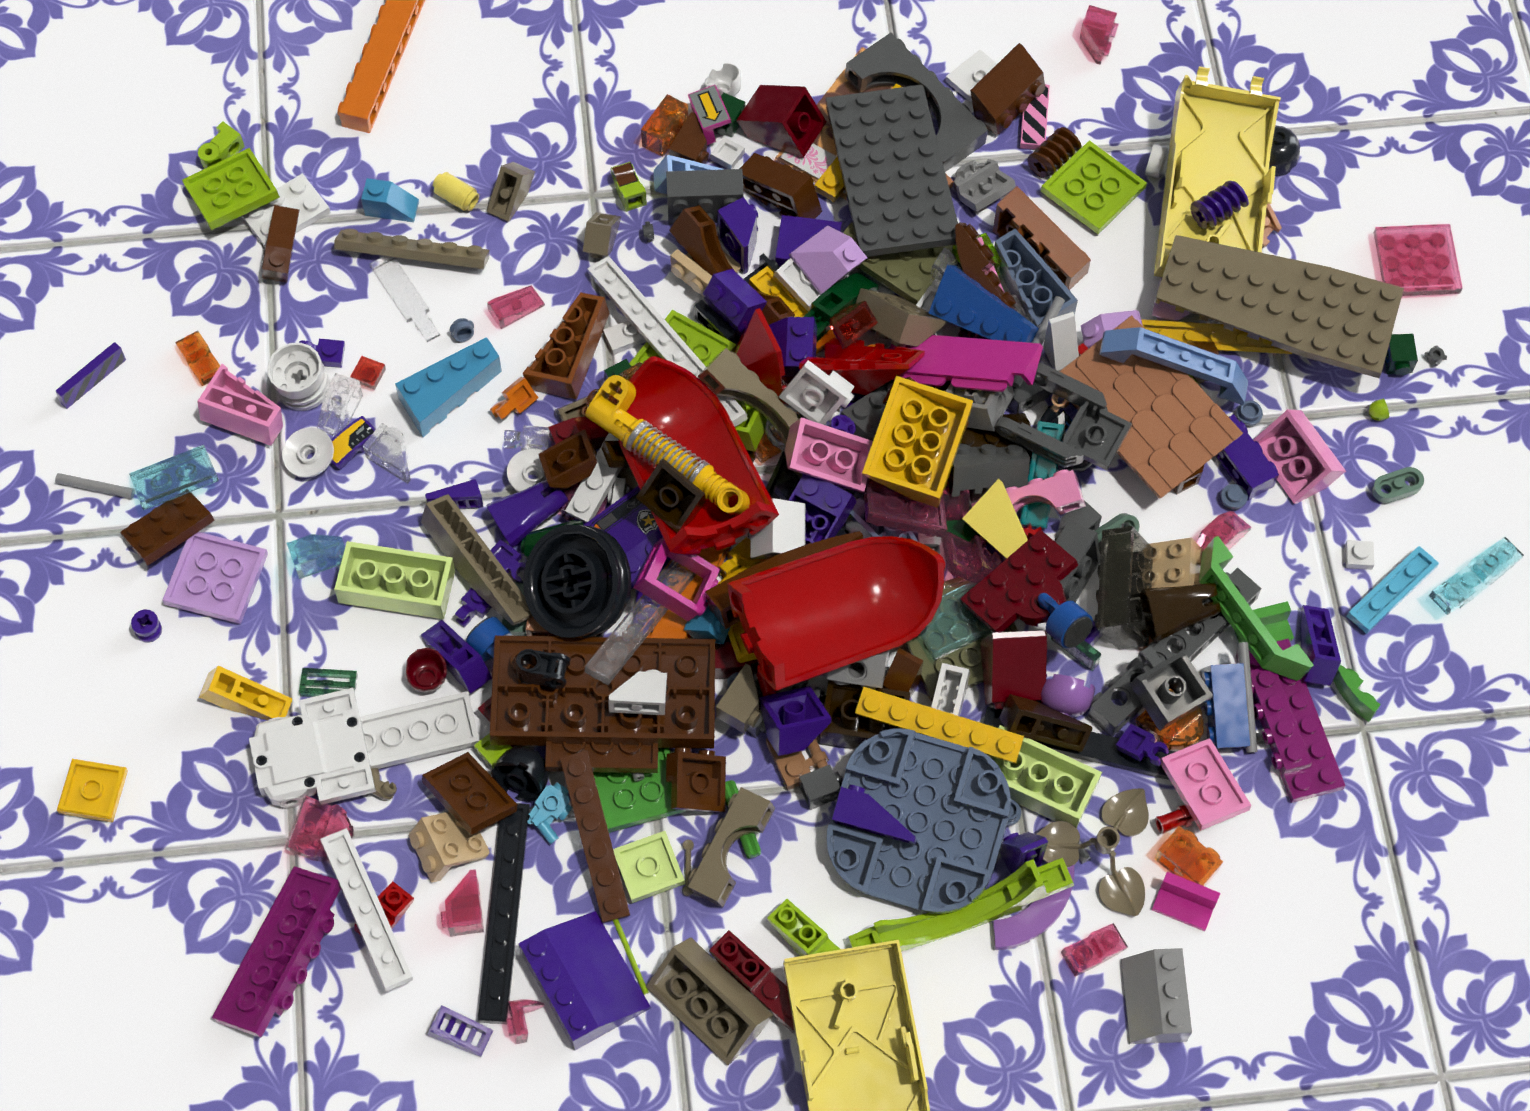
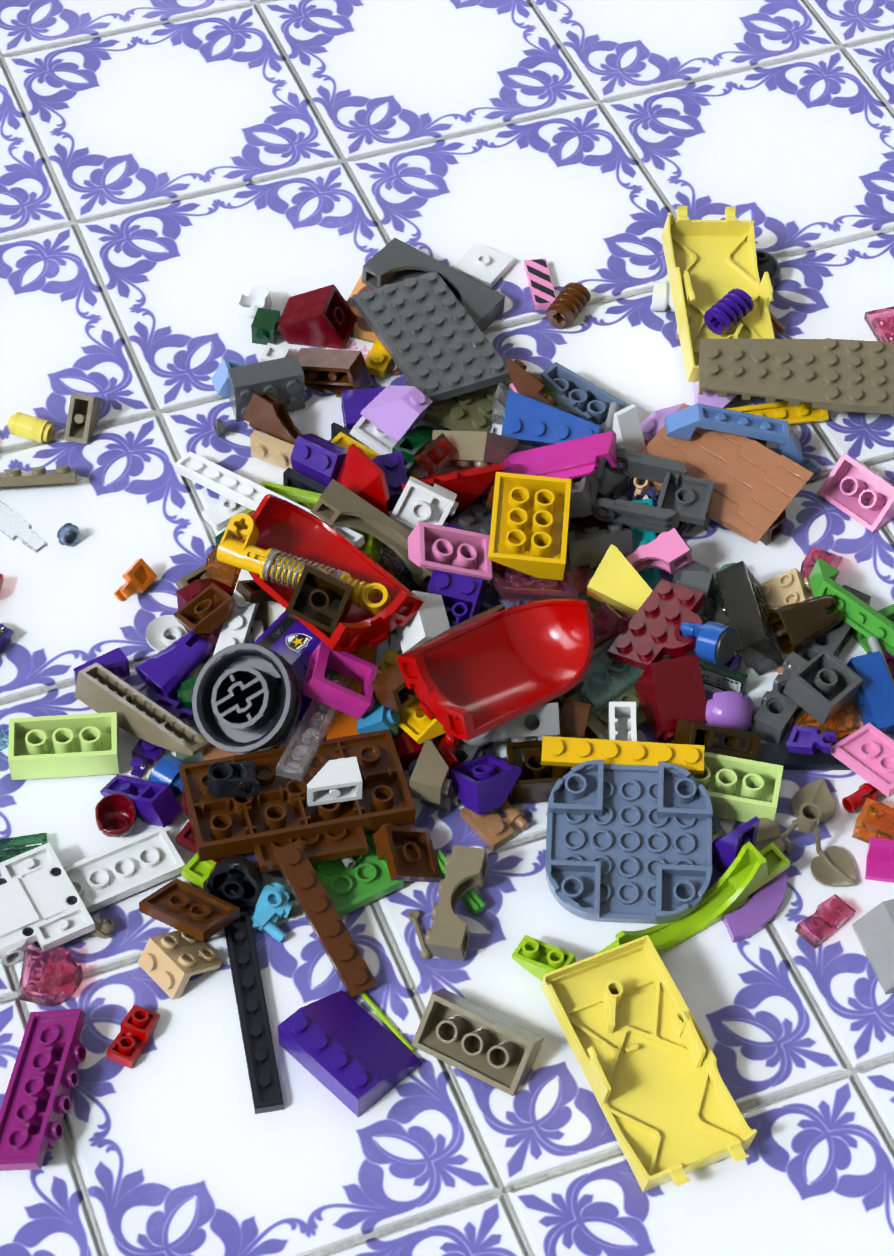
camera: 15 degrees left, 15 degrees down
(366, 910) = (117, 1031): white plate -> none
(388, 450) = (27, 644): clear slope -> none
(447, 384) = (66, 579): dark azure wedge -> none
(455, 1017) = (228, 1131): slope -> none
(464, 908) = (213, 1012): clear pink slope -> none
(514, 306) = (111, 508): clear pink slope -> none
(516, 1023) = (294, 1097): clear pink plate -> none
(531, 438) = (158, 607): clear plate -> none
(569, 352) = (177, 529): dark orange wedge -> none
(600, 234) = (177, 438): dark tan slope -> none
(628, 186) = (190, 394): lime leg -> none
(648, 866) = (384, 939): yellowish green plate -> none
(664, 125) = (211, 343): clear orange brick -> none
(690, 142) = (240, 348): reddish brown slope -> none
(709, 111) = (247, 324): panel -> none
(739, 231) = (304, 405): dark purple slope -> none
(754, 976) = (516, 1007): dark red slope -> none
(820, 786) = (524, 838): dark grey brick -> none
(863, 813) = (582, 843): dark purple slope -> none
(981, 184) = (513, 339): light grey slope -> none
(1007, 89) = (512, 262): reddish brown slope -> none
(1043, 235) = (555, 347): dark orange wedge -> none
(1093, 187) = (611, 326): lime plate -> none
(1097, 30) = (574, 211): clear pink slope -> none
(1234, 496) = (818, 536): sand blue plate -> none
(1247, 463) = (821, 508): dark purple brick -> none

